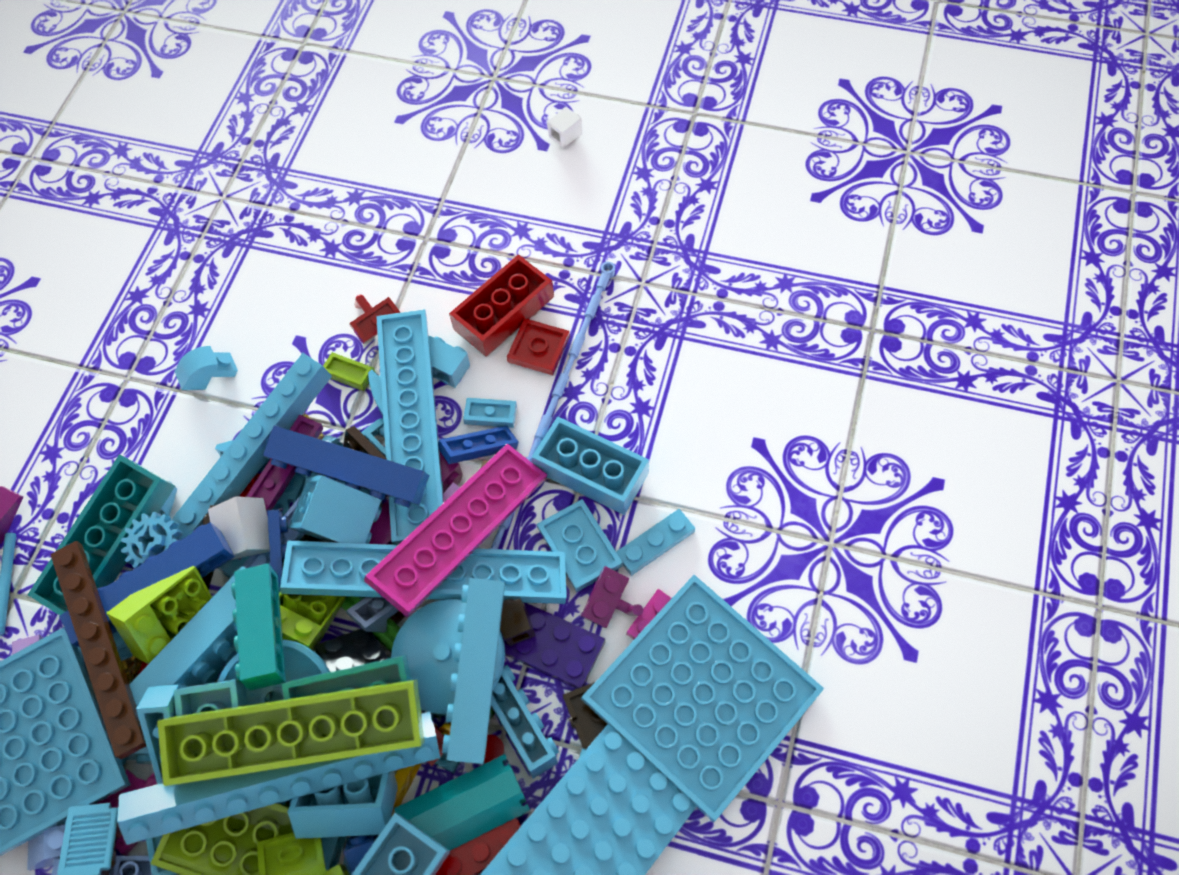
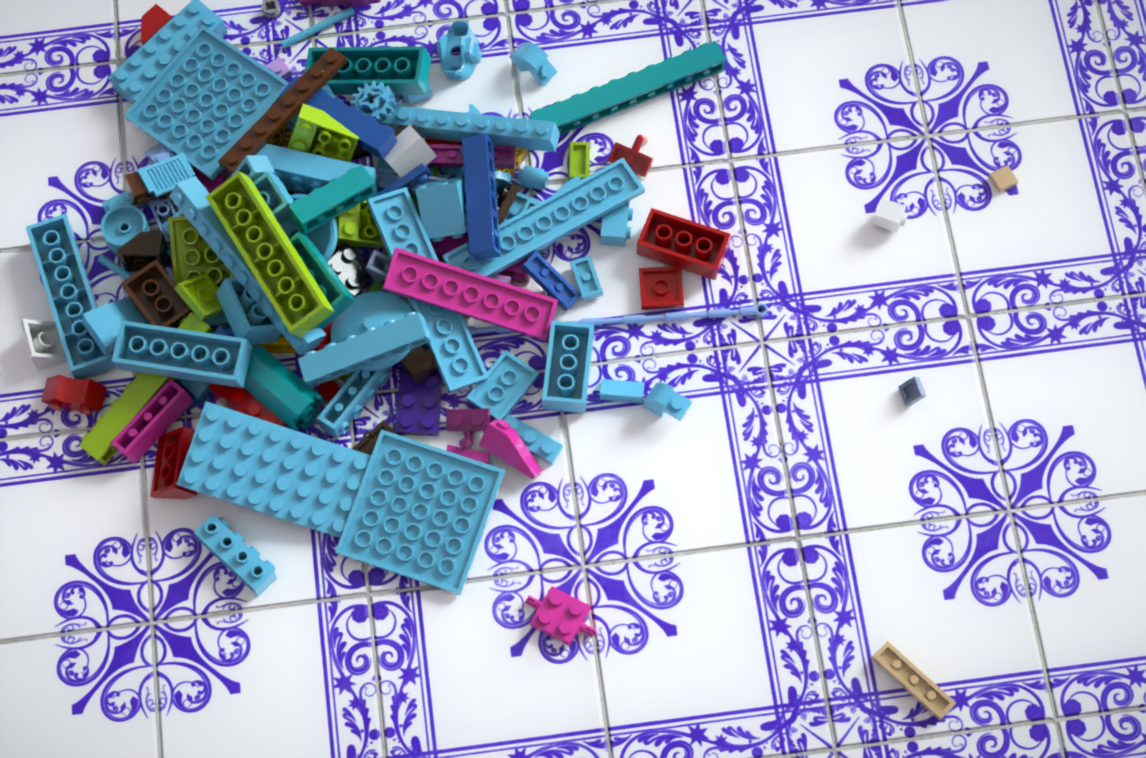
camera: 65 degrees right, 5 degrees up
(123, 431) = (460, 37): none -> medium azure piece
(295, 286) = (634, 88): none -> teal brick
(340, 419) = (533, 177): none -> medium azure brick
(571, 38) = (1003, 178): none -> tan tile
(639, 427) = (622, 391): none -> medium azure slope
(655, 566) = (509, 447): none -> dark pink slope
(672, 385) = (665, 400): none -> medium azure brick
(757, 176) = (912, 391): none -> sand blue plate
(886, 588) = (560, 616): none -> dark pink plate
(1066, 284) = (913, 680): none -> tan plate

